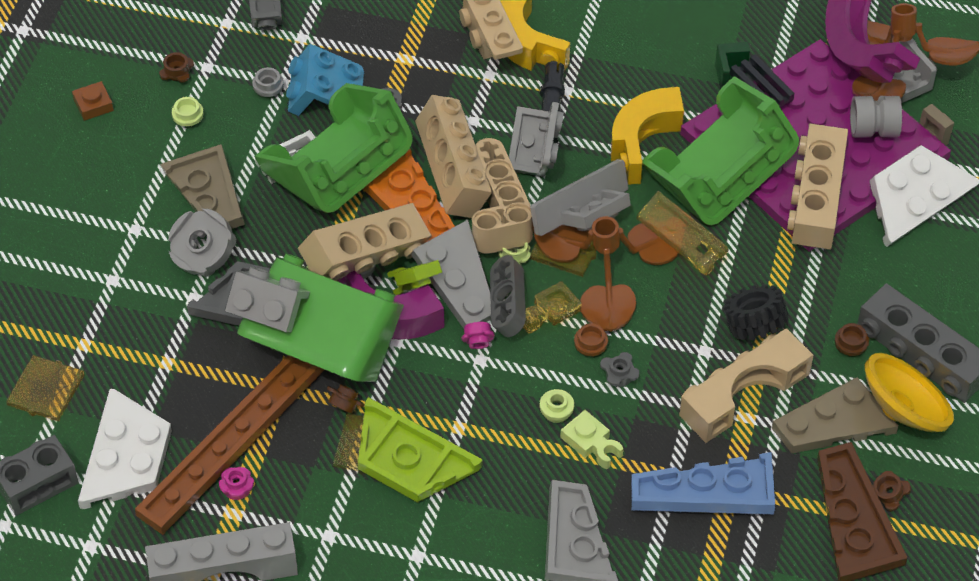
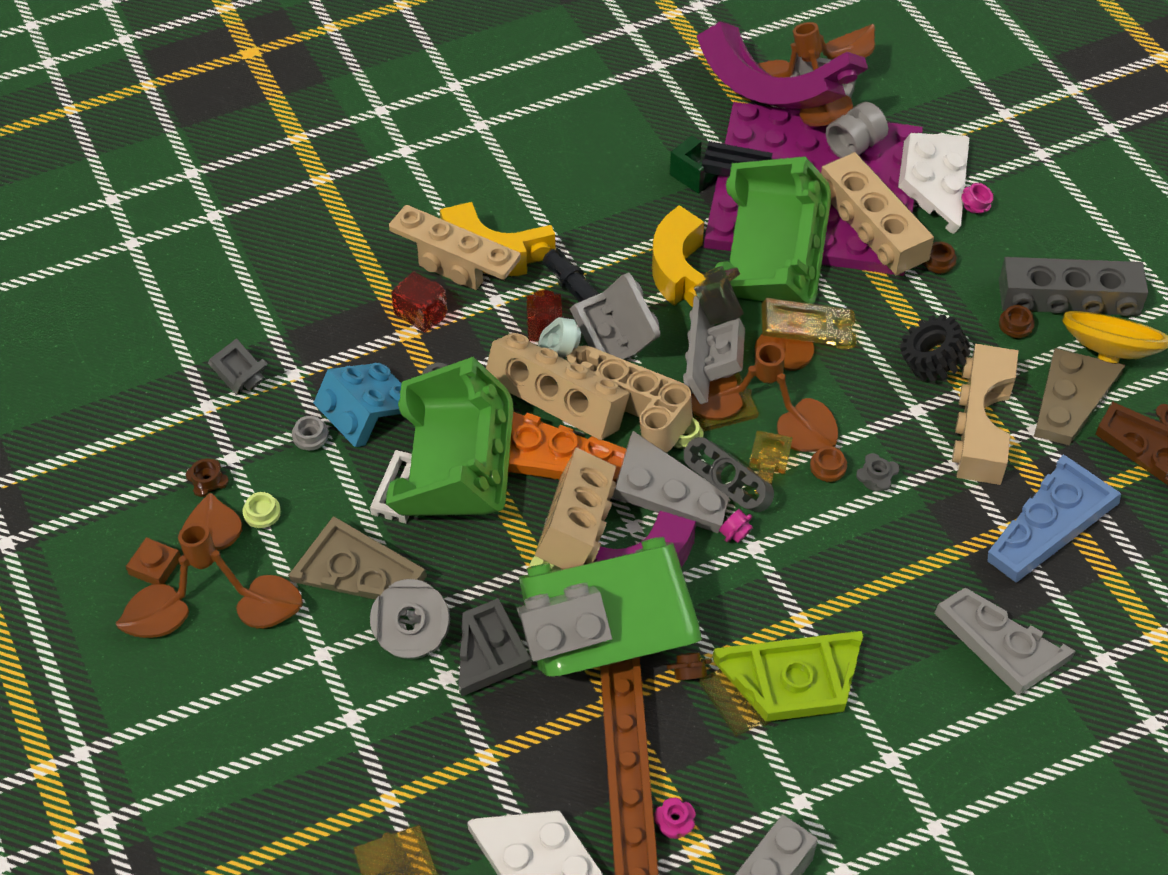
camera: 40 degrees left, 0 degrees up
(146, 103) = (209, 528): none -> dark orange plant
(414, 277) = (641, 509): lime plate -> none
(429, 40) = (419, 301): none -> clear red brick
(487, 126) = (561, 336): none -> light aqua plate
(502, 105) = (542, 310): none -> clear red bracket
(556, 413) = (859, 547): yellowish green plate -> none
(590, 436) = (913, 548): yellowish green plate -> none
(626, 170) = (718, 295): none -> clear smoke bracket
(847, 255) = (941, 258): none -> reddish brown plate
(934, 226) = (977, 198): none -> dark pink plate
(937, 123) = (896, 110): dark tan plate -> none

